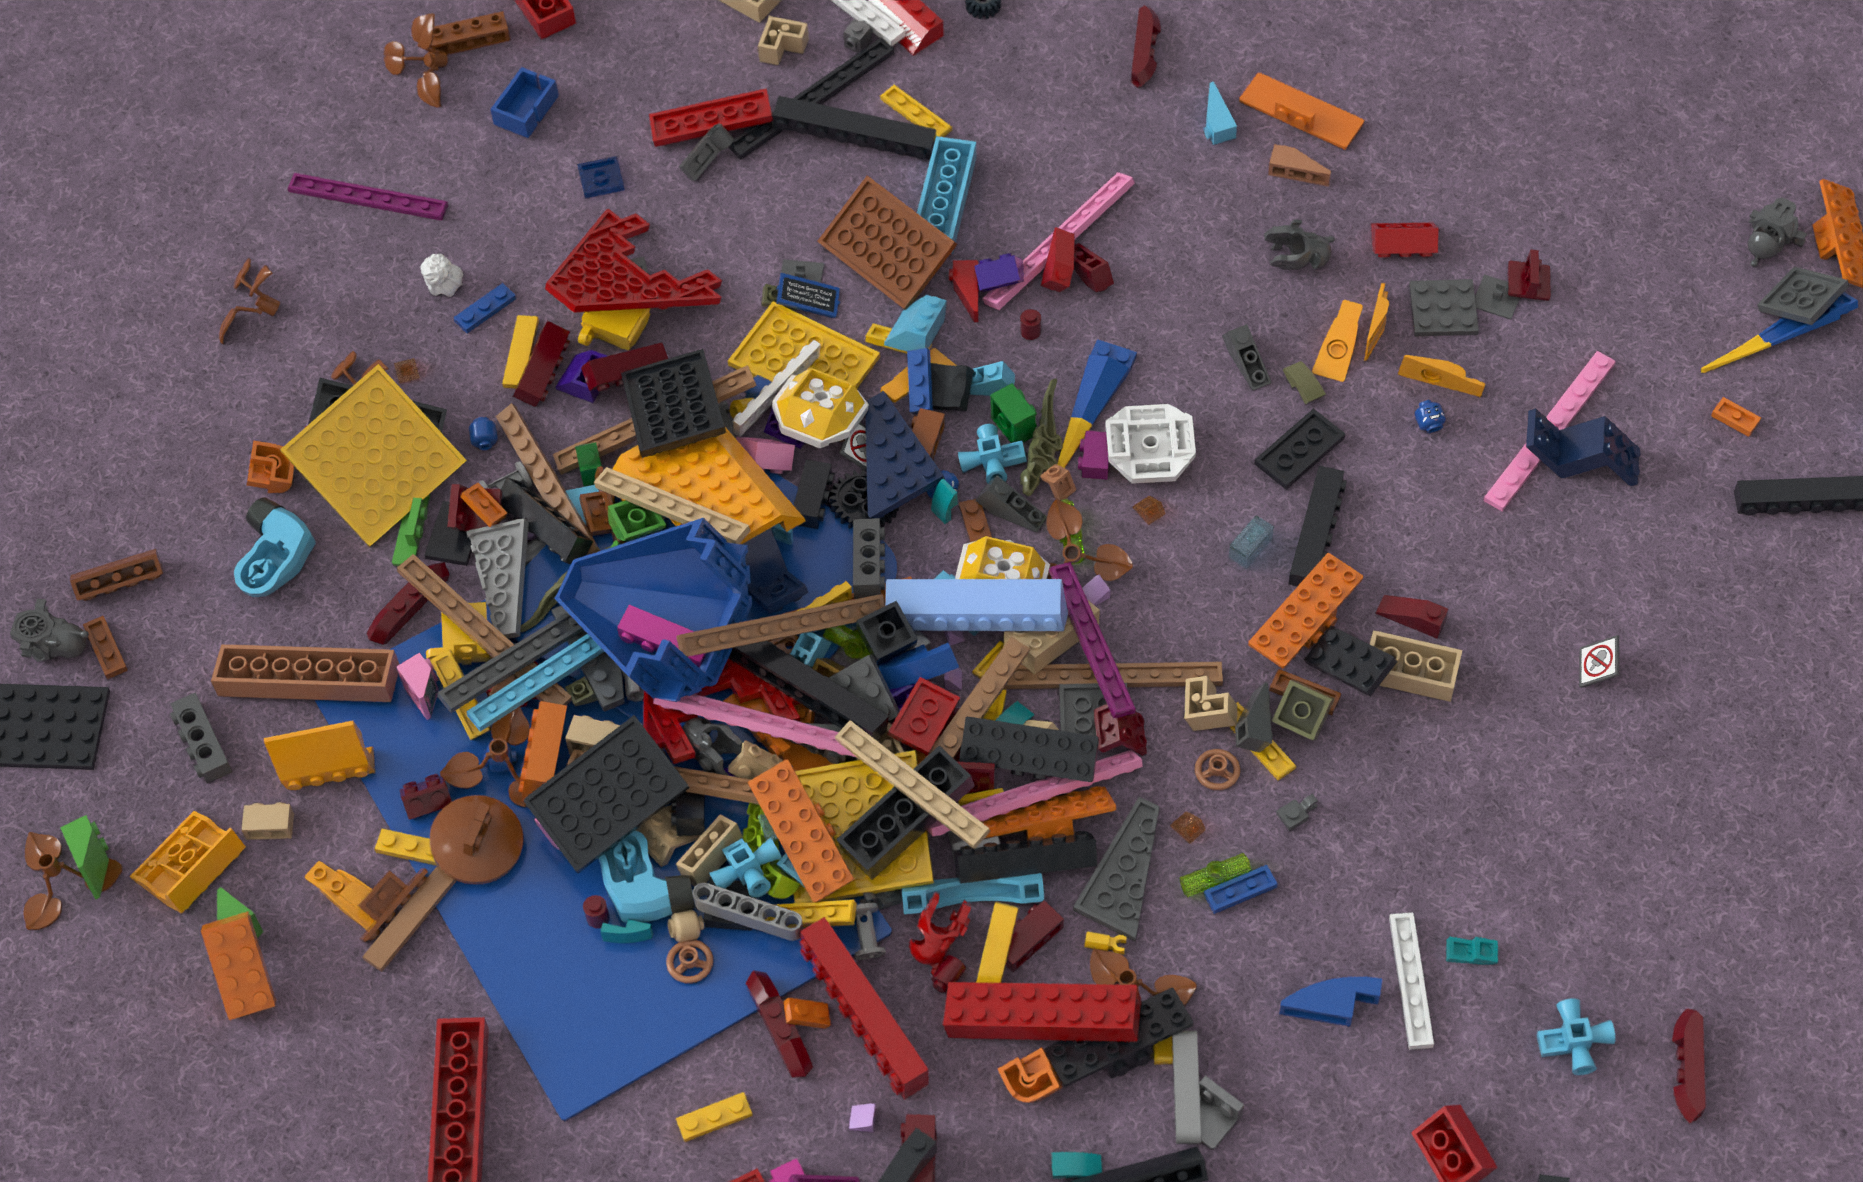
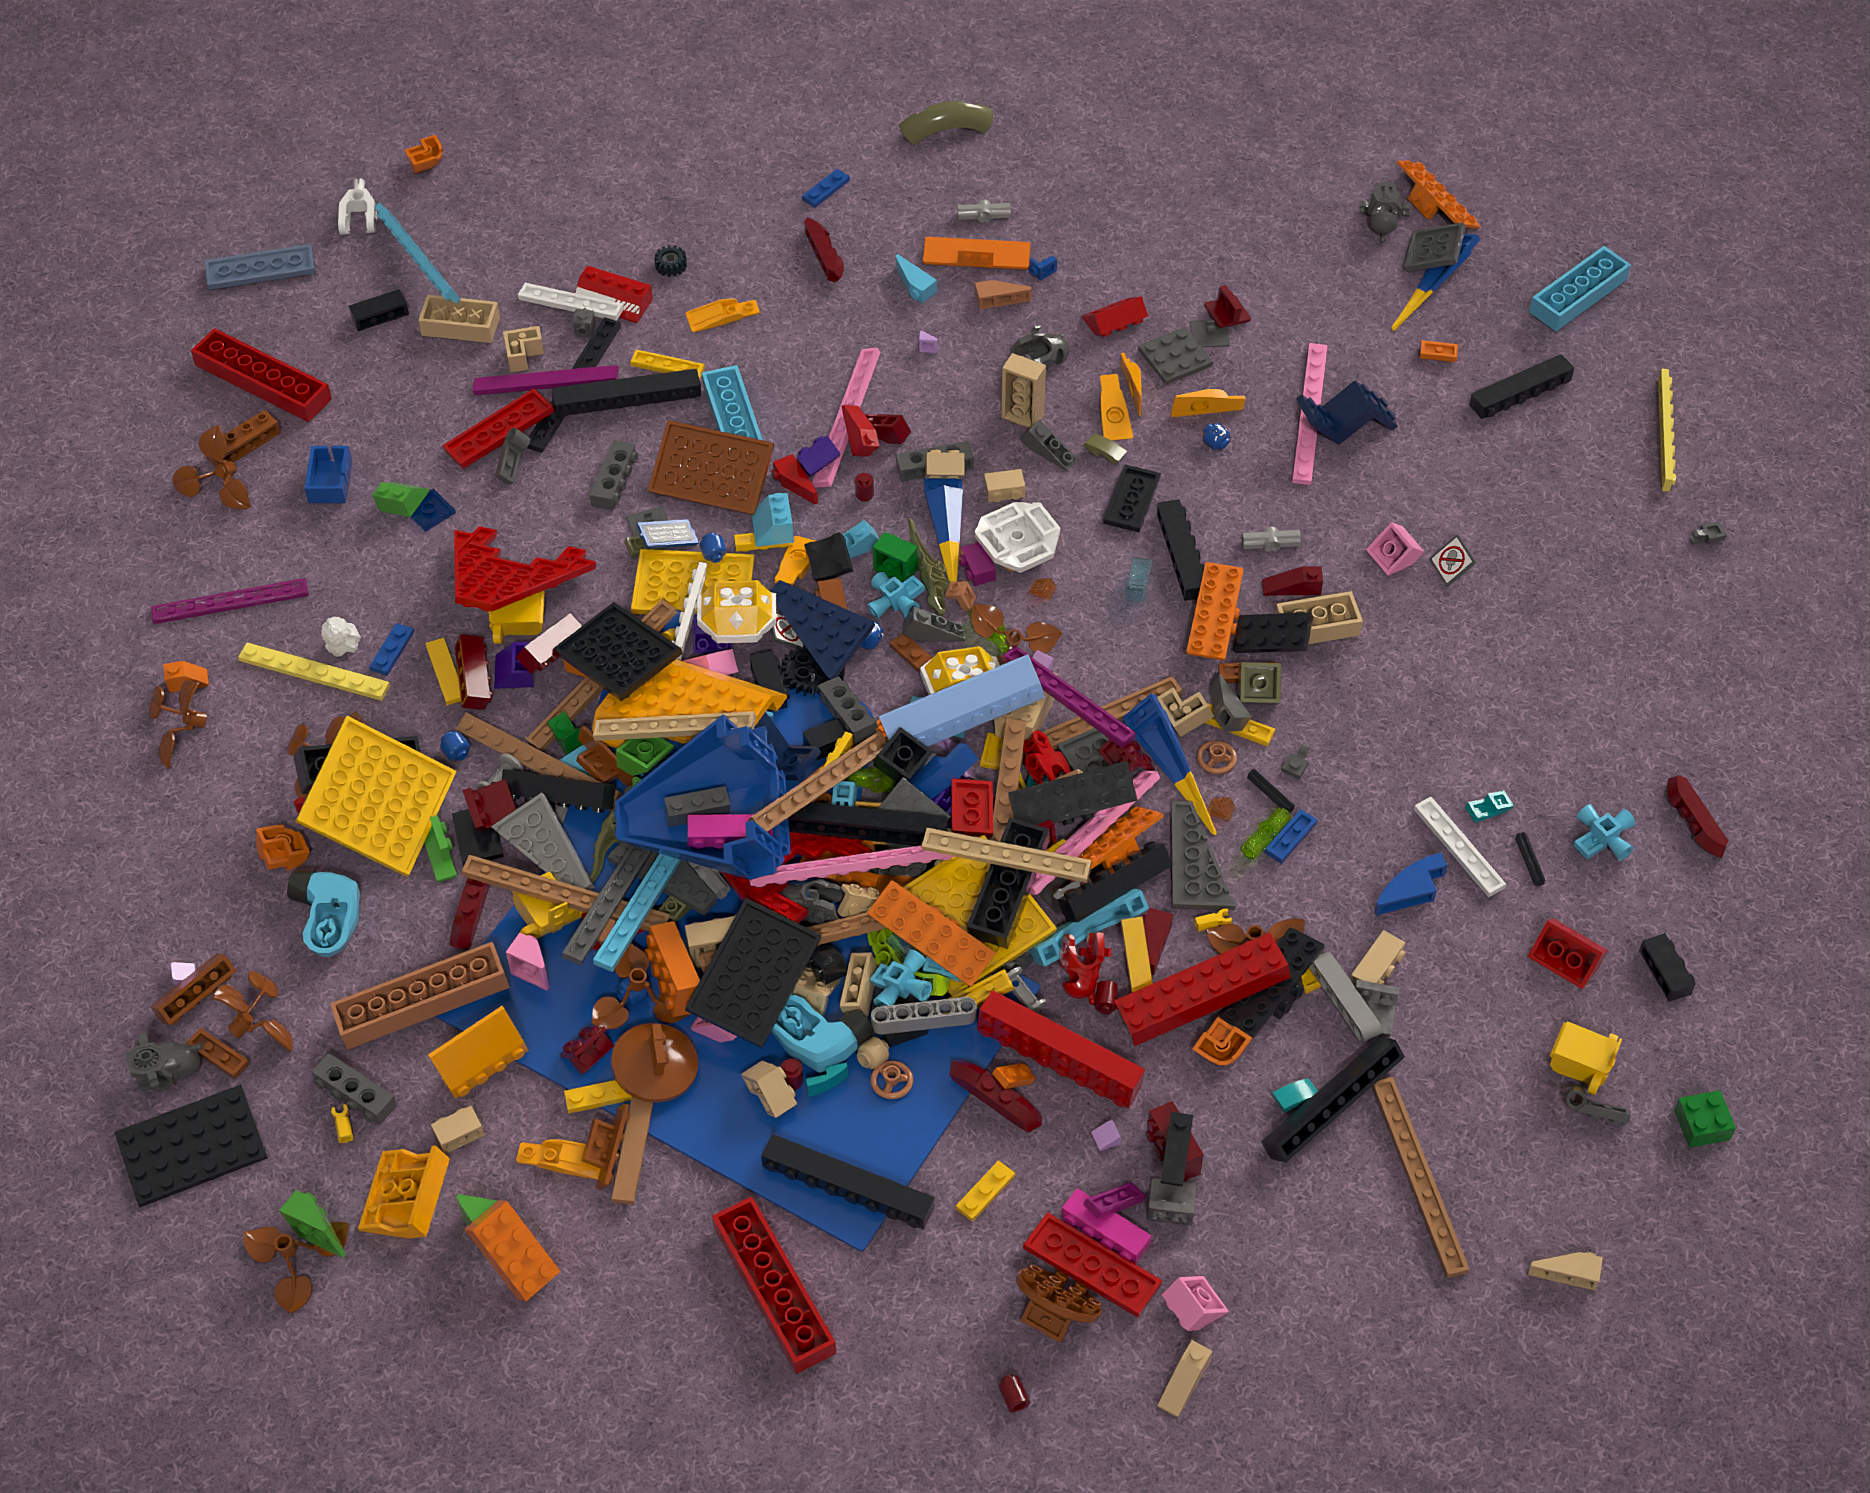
camera: 30 degrees left, 5 degrees down
(118, 551) = (181, 971): none -> slope
(131, 602) = (243, 1022): none -> dark orange plant
(173, 768) = (342, 1125): none -> yellow bar
(283, 257) = (177, 672): none -> orange slope
(402, 301) = (314, 671): none -> light yellow plate
(449, 672) = (556, 942): yellow tile -> none
(484, 505) = (499, 796): orange plate -> none
(564, 908) = (771, 1088): none -> tan brick
(578, 152) = (399, 498): none -> bright green slope
(585, 1045) = (848, 1182): none -> black brick
(651, 598) = (704, 802): none -> dark grey brick
(784, 83) = (543, 380): none -> magenta tile
(793, 211) = (613, 475): none -> dark grey brick
(827, 575) = (824, 737): none -> black brick
(840, 329) = (713, 547): none -> blue head
(919, 380) = (804, 560): blue plate -> none
(943, 501) = (880, 644): teal slope -> none
(1001, 77) = (720, 313): none -> light orange piece
(1032, 696) = (1042, 758): none -> red piece
(1119, 325) = (912, 464): none -> dark grey brick
(1120, 334) = (944, 465): none -> tan brick
(1164, 717) = (1160, 741): none -> blue plate
(1174, 381) = (1004, 485): none -> tan brick
(1188, 191) = (928, 343): none -> lavender slope
(1245, 285) = (1023, 390): none -> tan brick
(1246, 1066) = (1380, 959): none -> tan brick
(1250, 831) = (1270, 790): none -> black axle
(1335, 66) = (983, 211): none -> light grey piece
(1361, 155) = (1044, 268): none -> blue bracket
(1418, 555) = (1271, 539): none -> light grey piece
(1479, 1028) = (1530, 859): none -> black axle
(1546, 622) = (1394, 549): none -> bright pink slope

